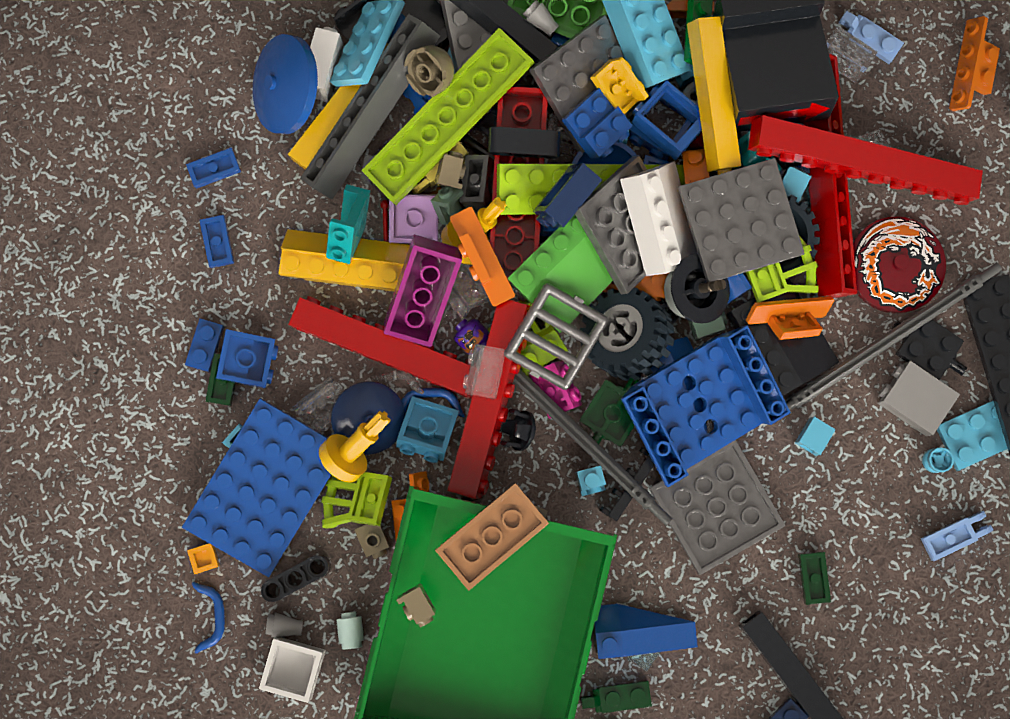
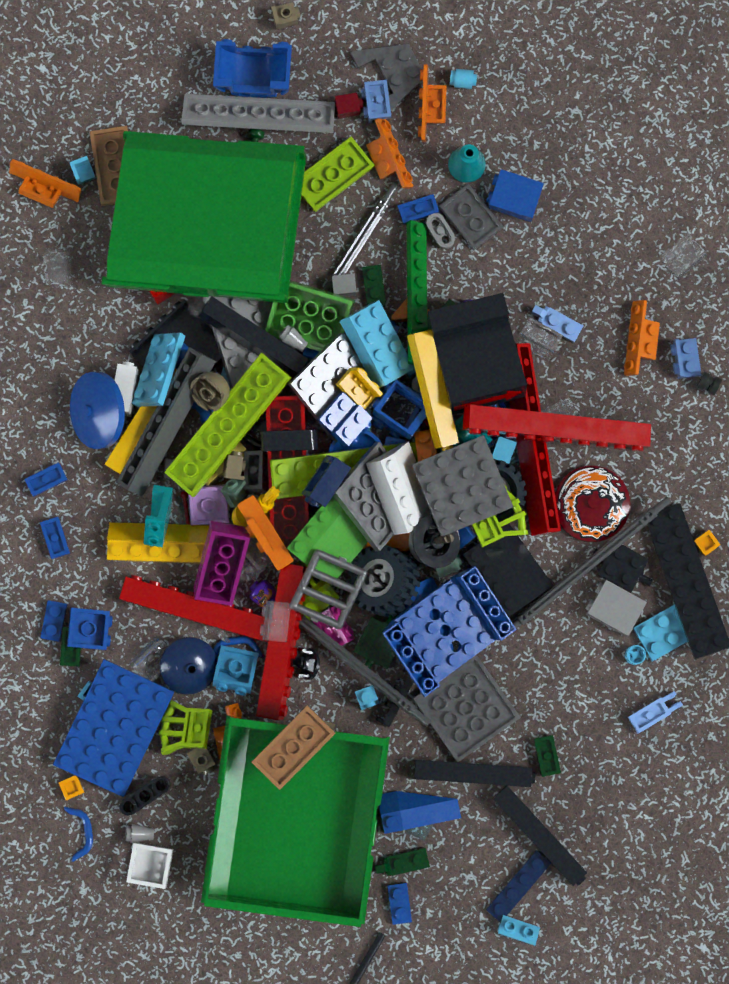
camera: 10 degrees left, 0 degrees up
(344, 456) = (174, 697): yellow piece -> none
(350, 630) = (191, 832): light aqua brick -> none
(417, 605) = (242, 805): dark tan brick -> none
(719, 591) = (474, 773): none -> black brick
(791, 317) = (510, 555): orange bracket -> none
(815, 436) = (538, 645): medium azure panel -> none

